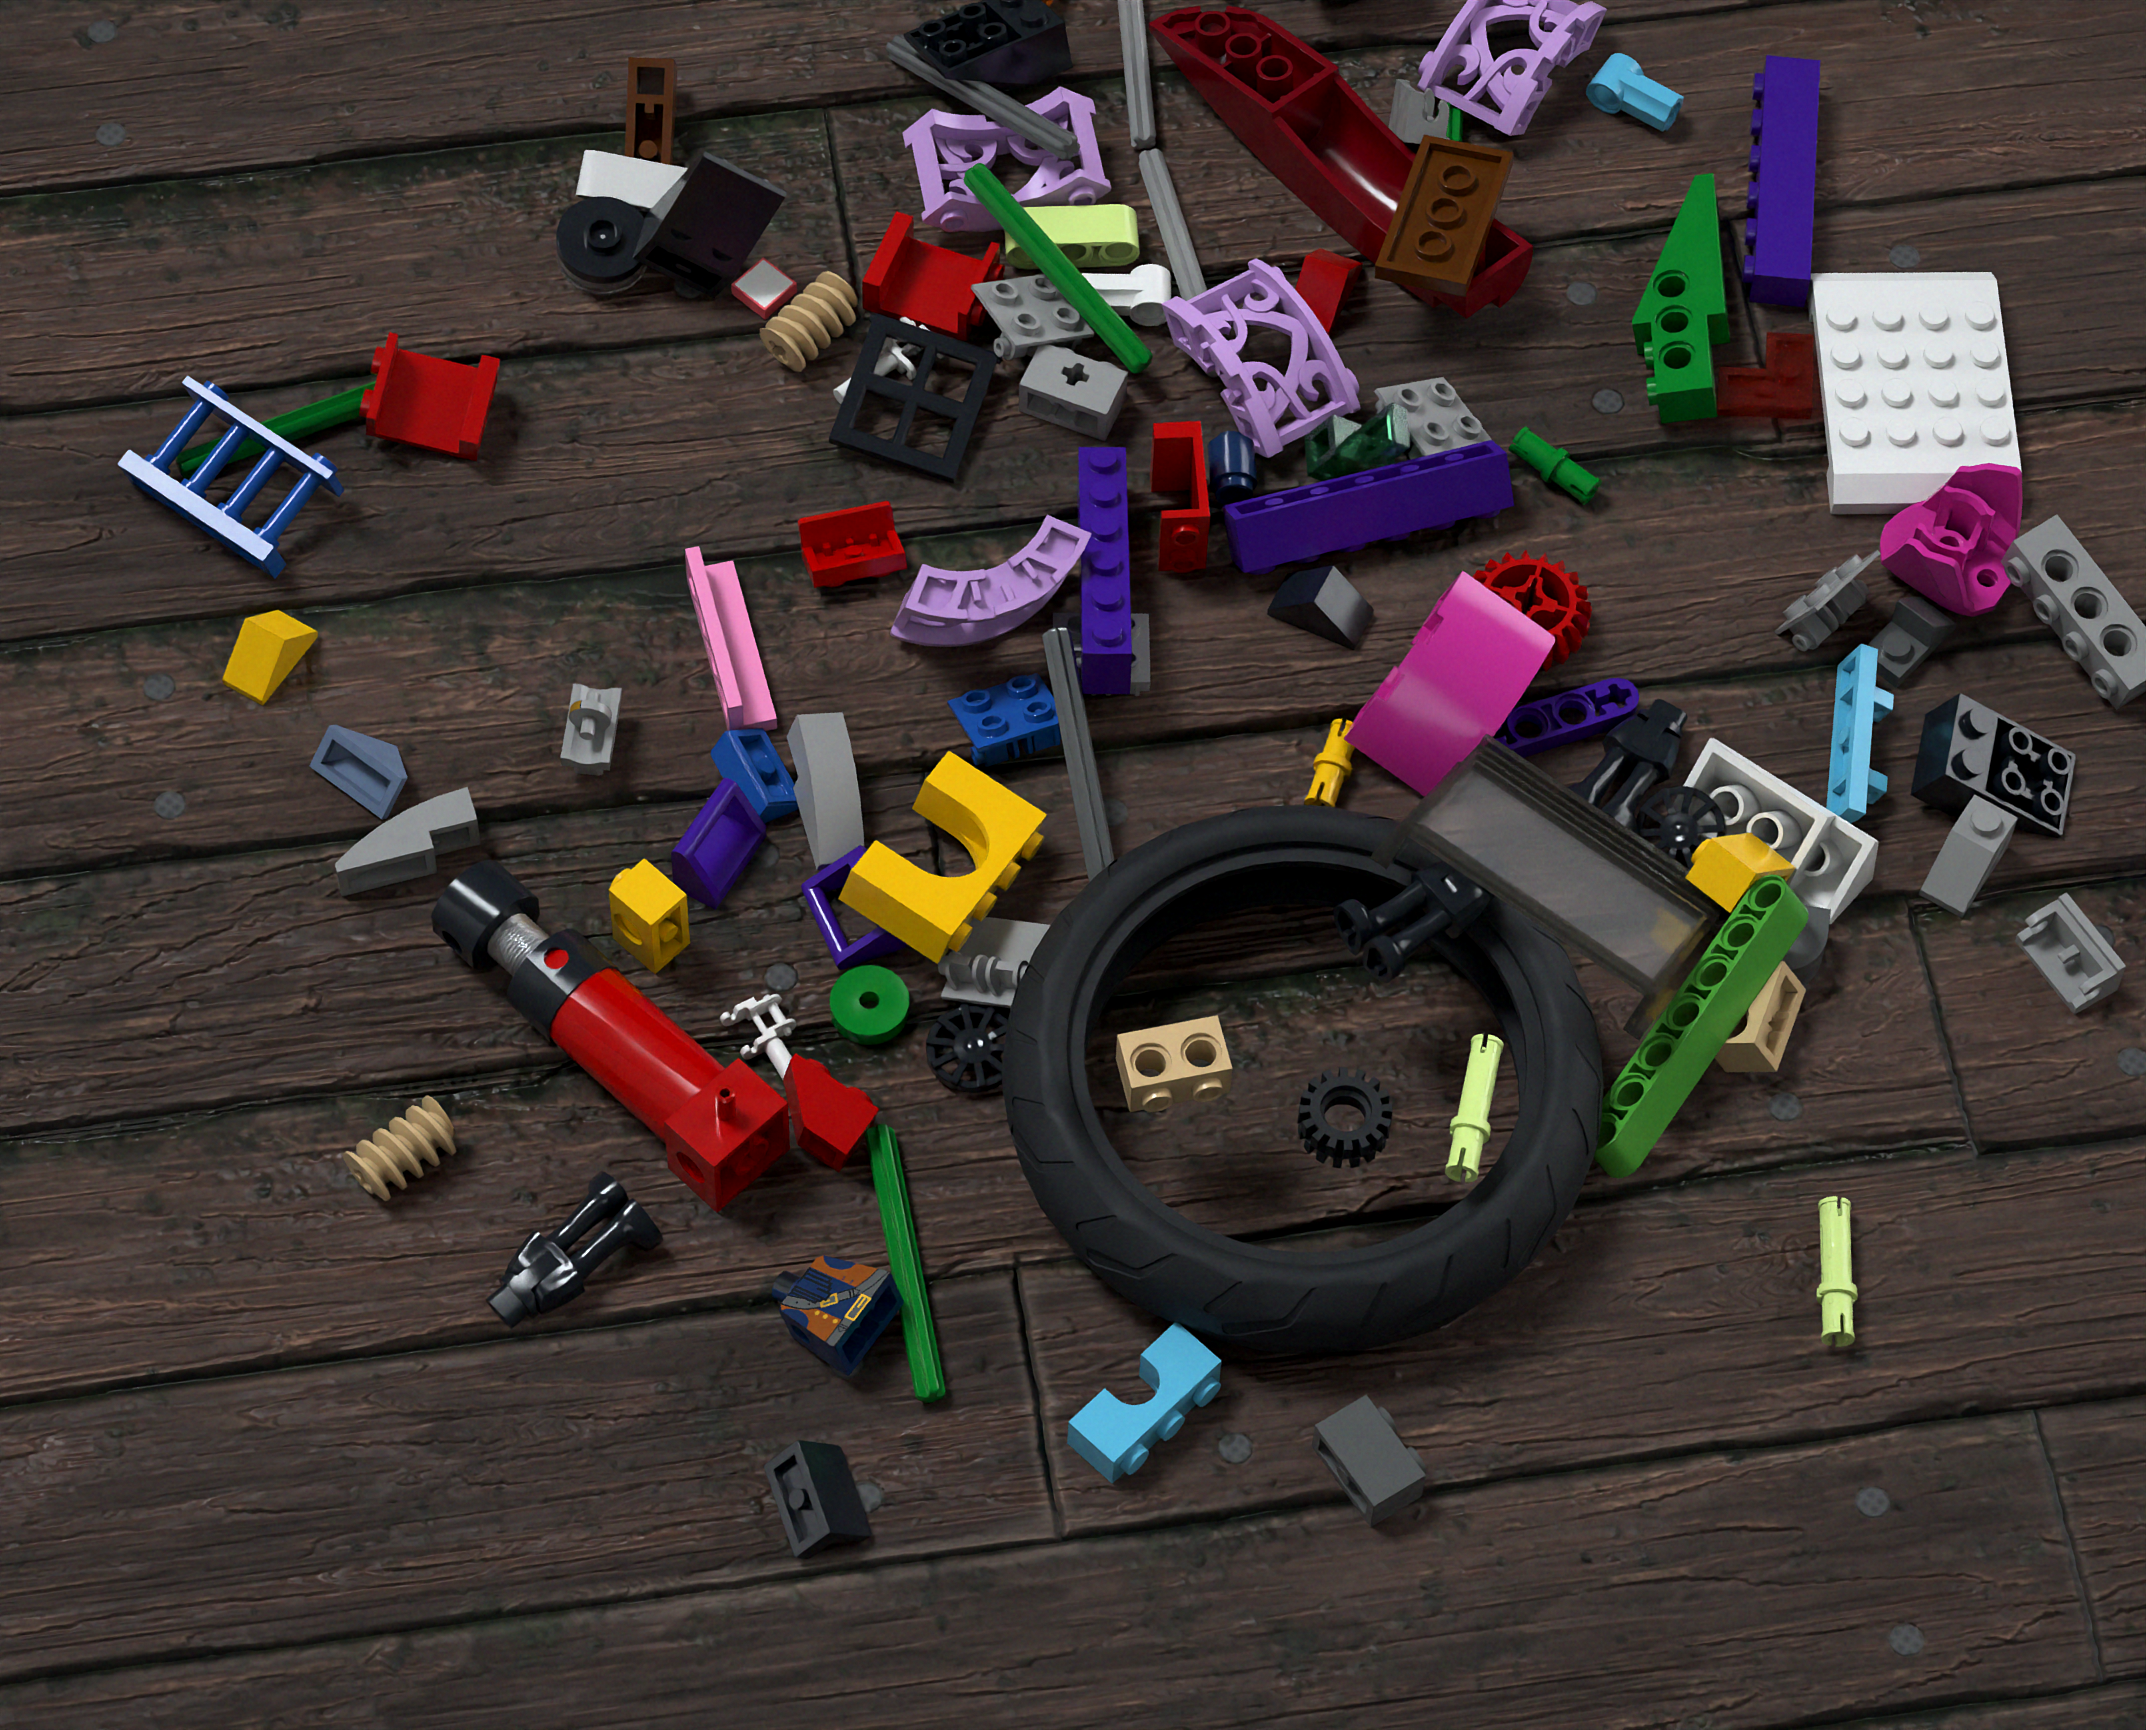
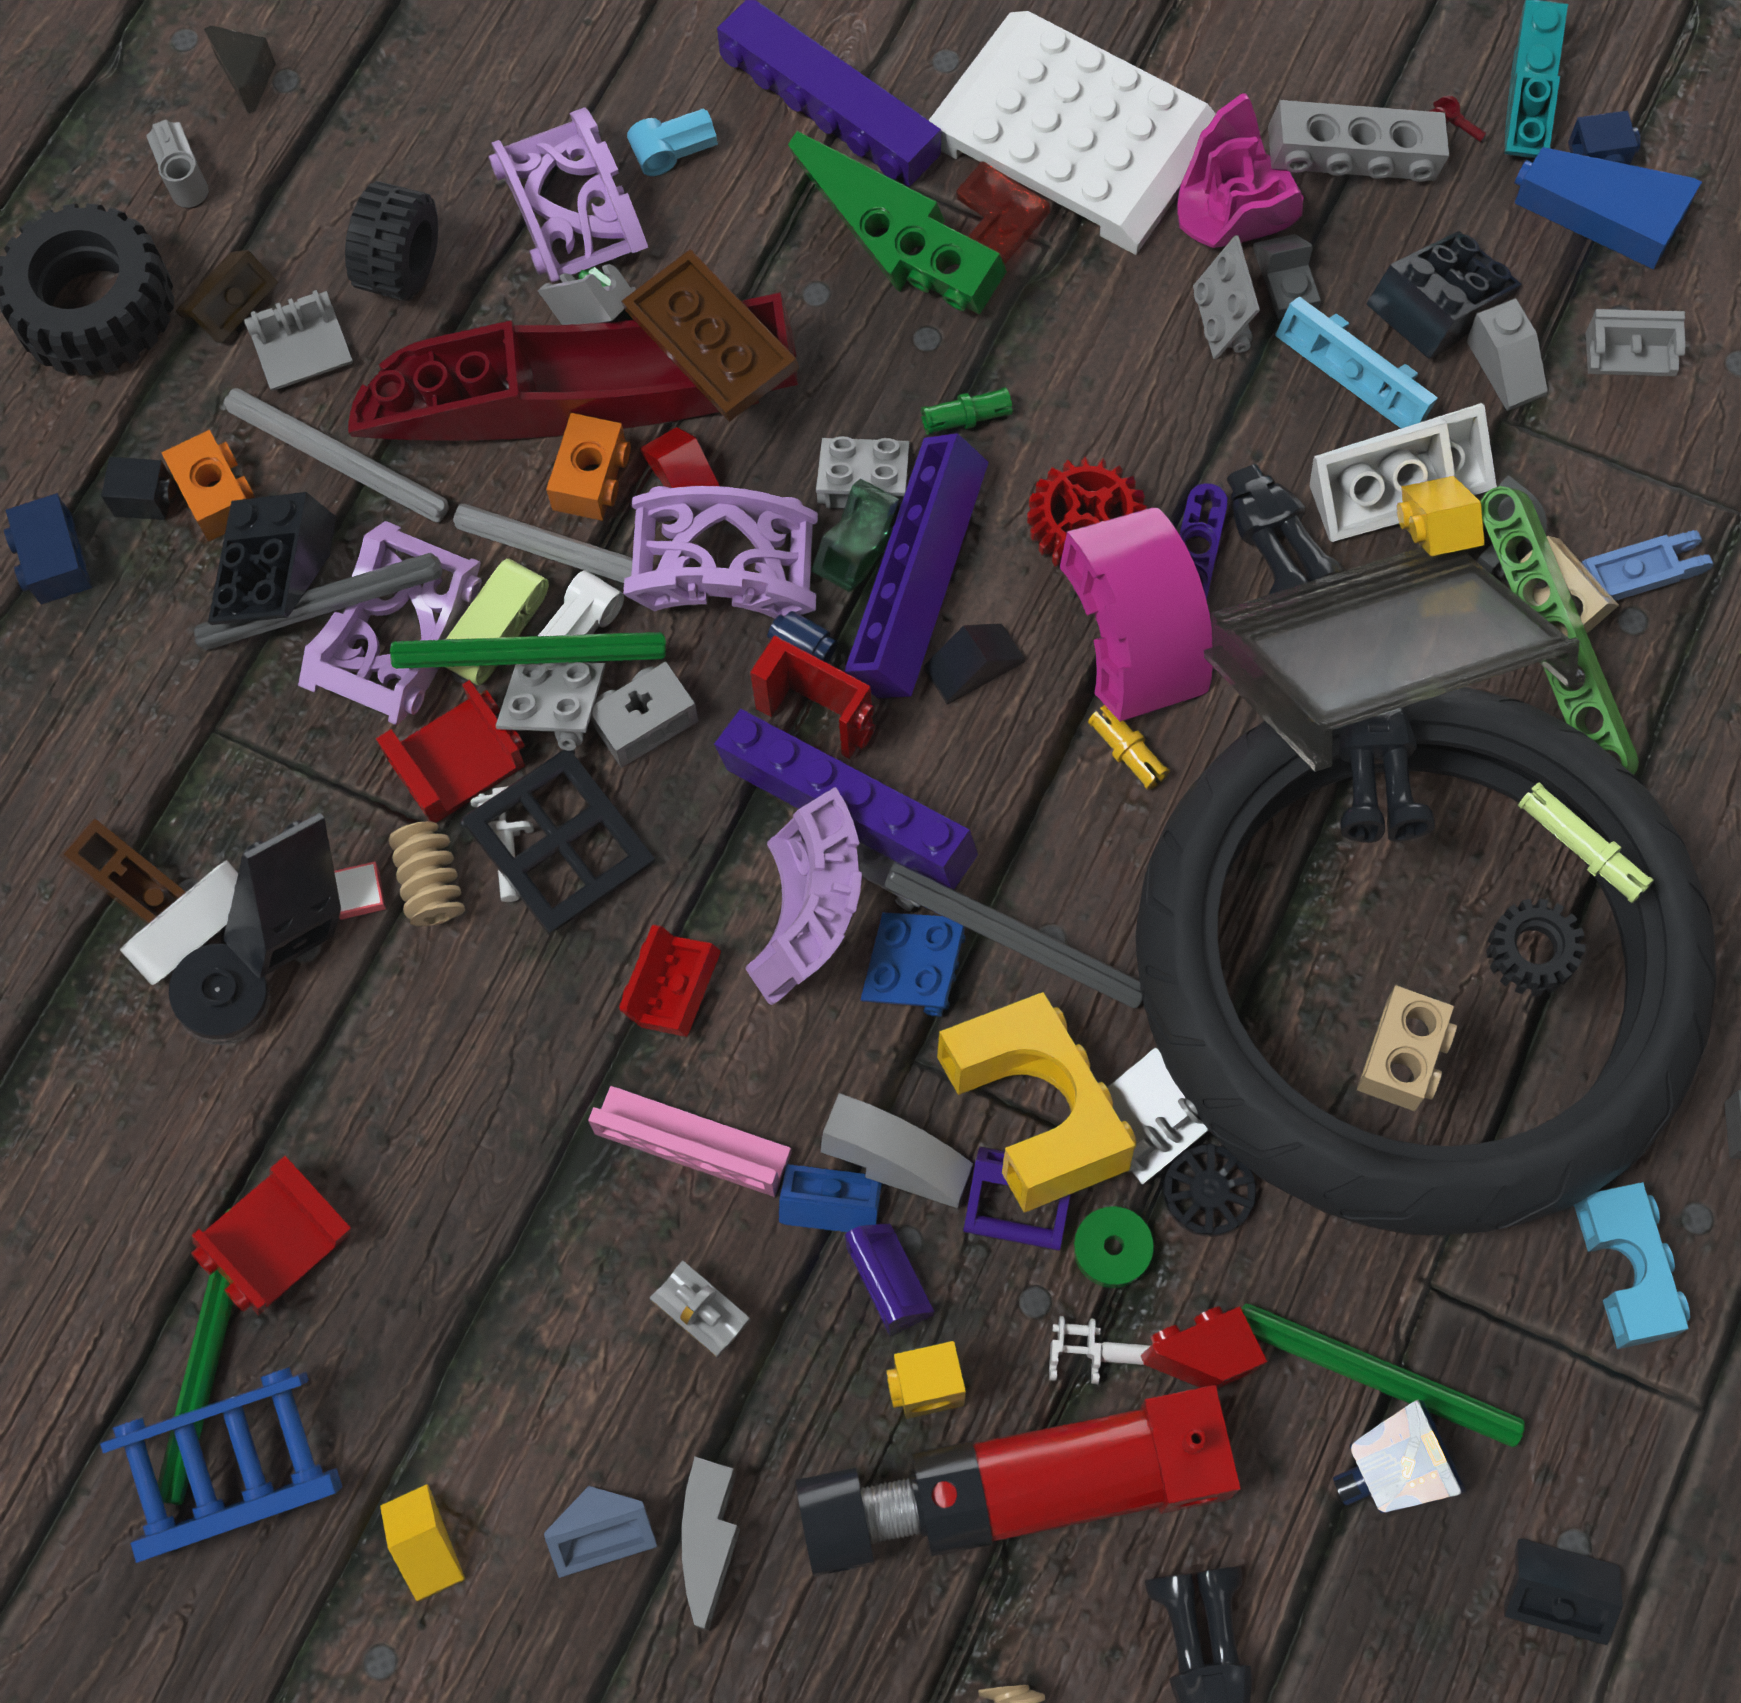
camera: 50 degrees left, 10 degrees up
(1266, 217) = (584, 444): none -> orange brick
(1680, 829) = (1359, 534): black wheel -> none
(1842, 1081) = (1647, 565): none -> medium blue hinge

